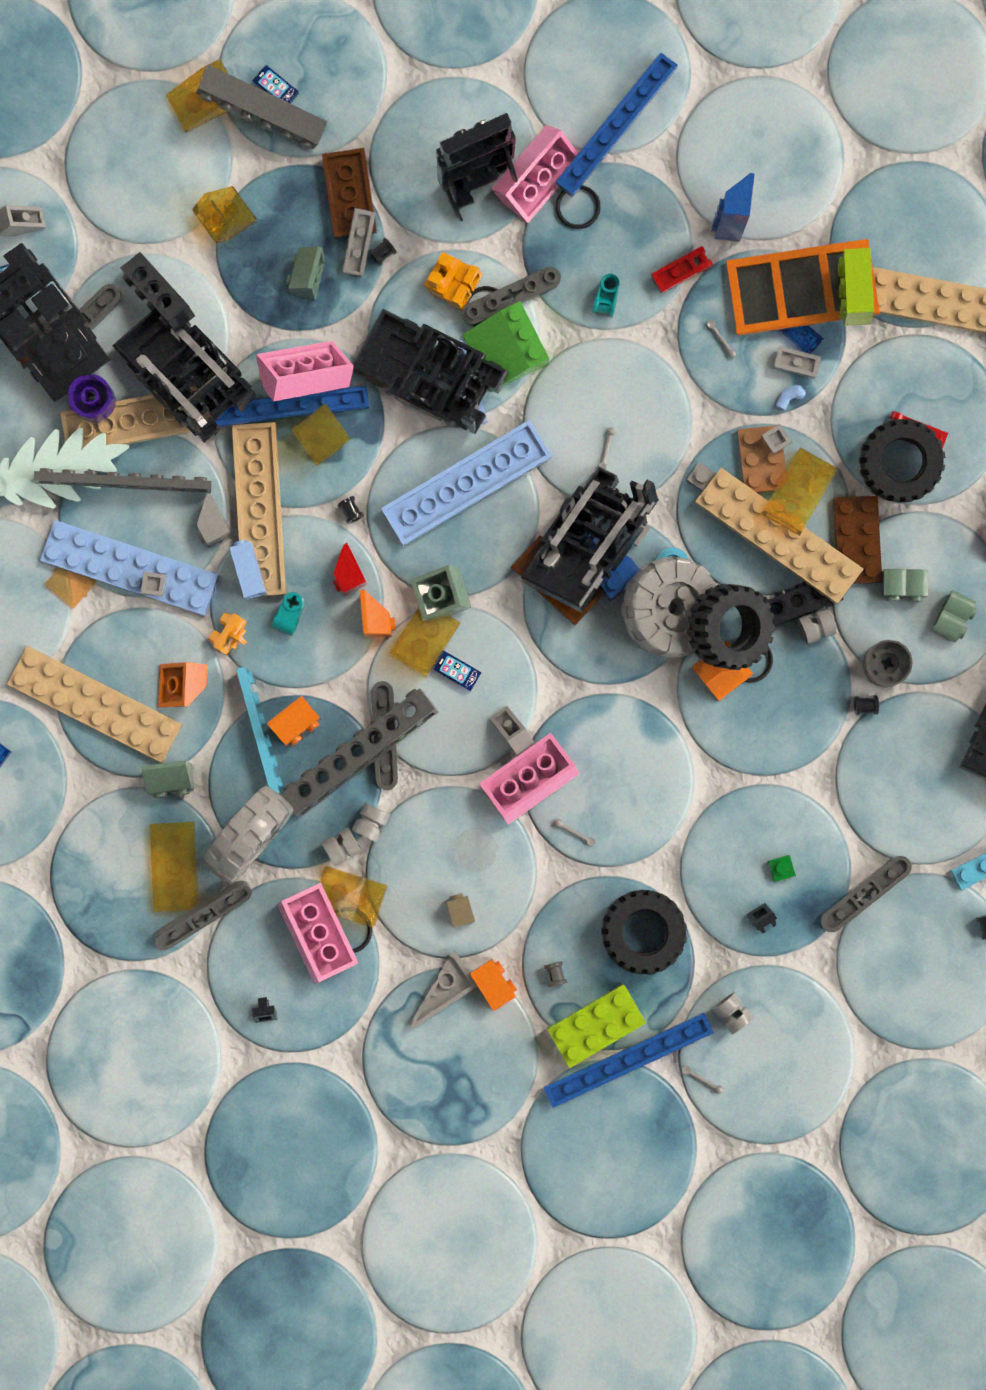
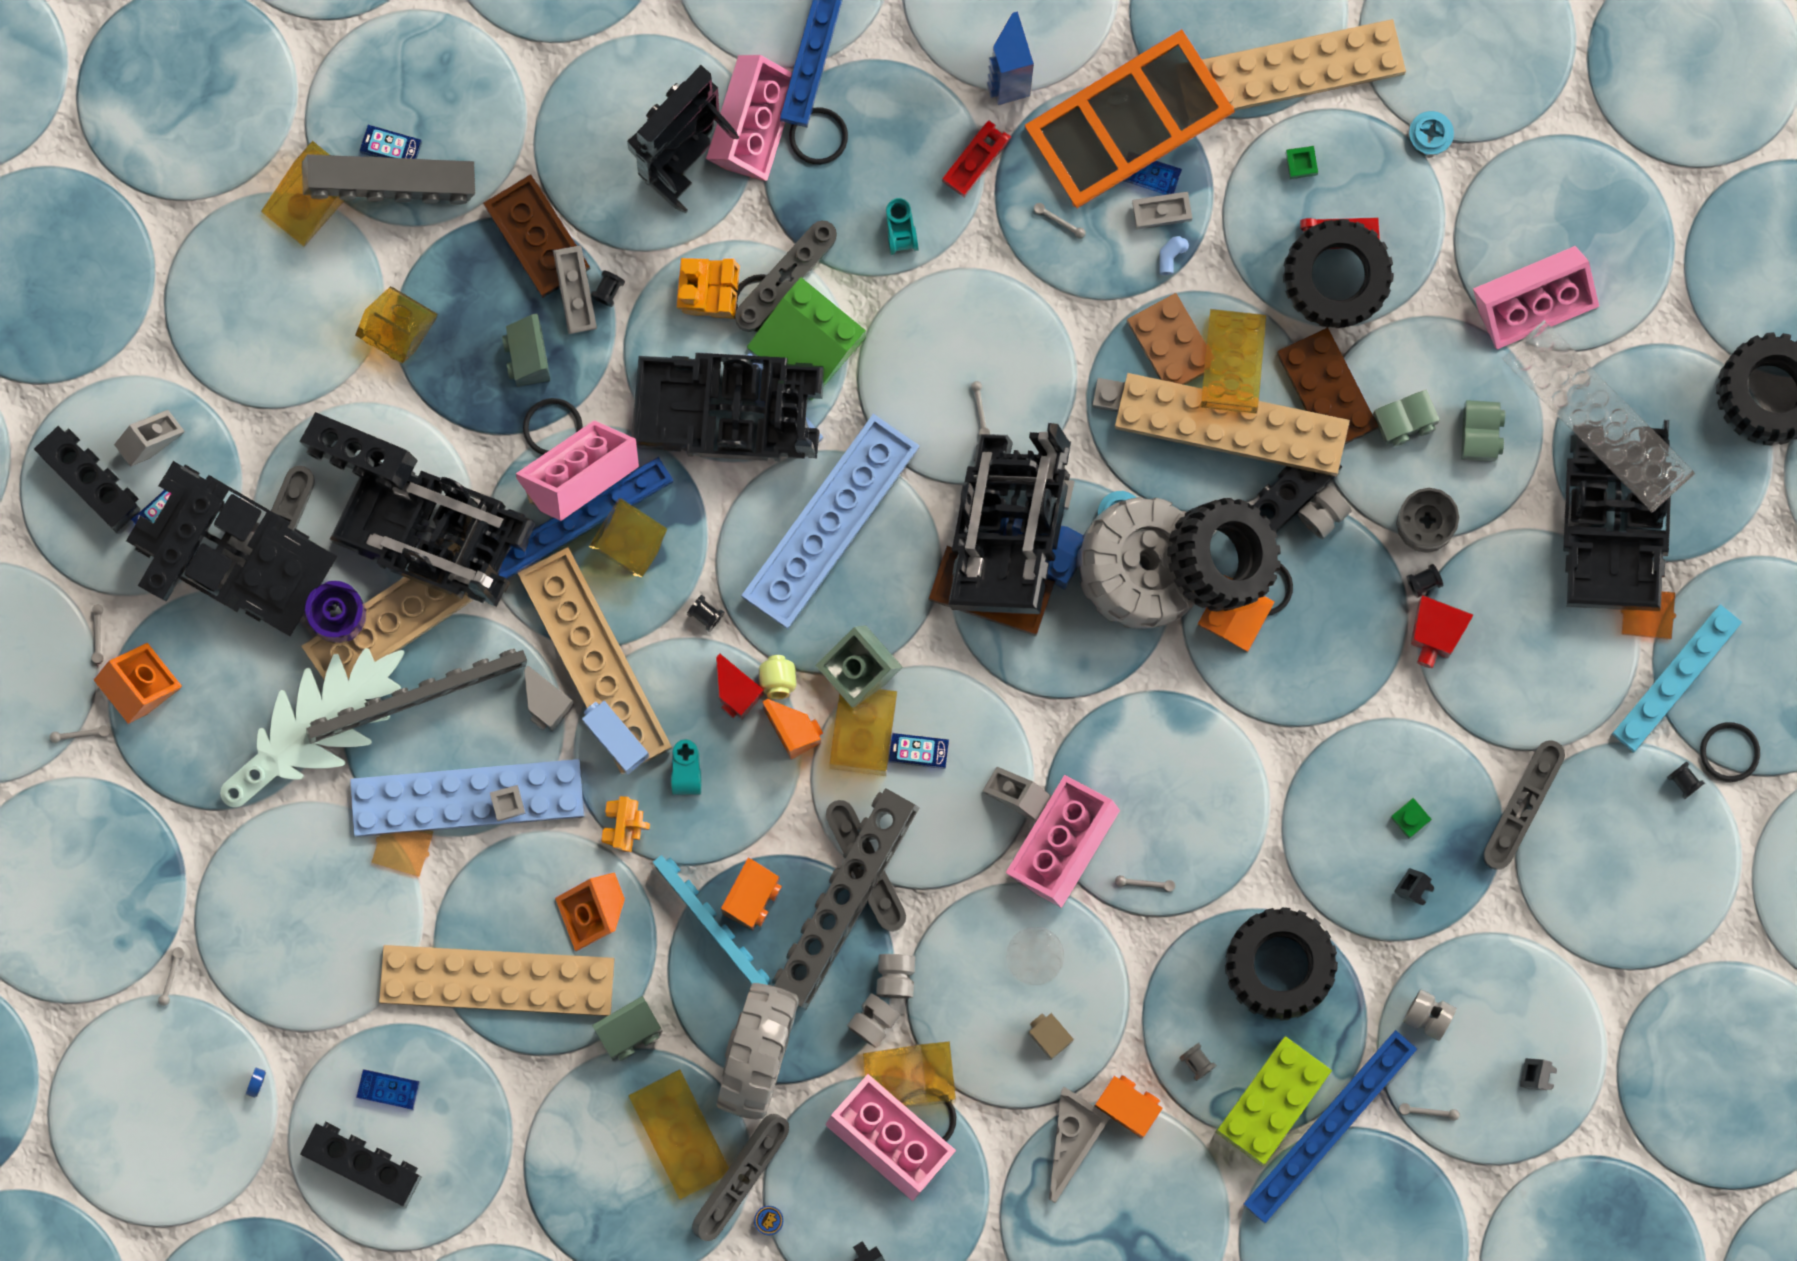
camera: 25 degrees left, 5 degrees down
(209, 953) = (768, 1220): none -> tile
(301, 313) = (535, 407): none -> black tyre
(380, 576) = (777, 677): none -> yellowish green head
(776, 439) = (1178, 311): light grey plate -> none
(790, 1087) = (1537, 1074): none -> black tile
(856, 287) = (1193, 92): lime brick -> none
(859, 743) = (1437, 629): none -> red torso
(911, 370) = (1301, 162): none -> green plate

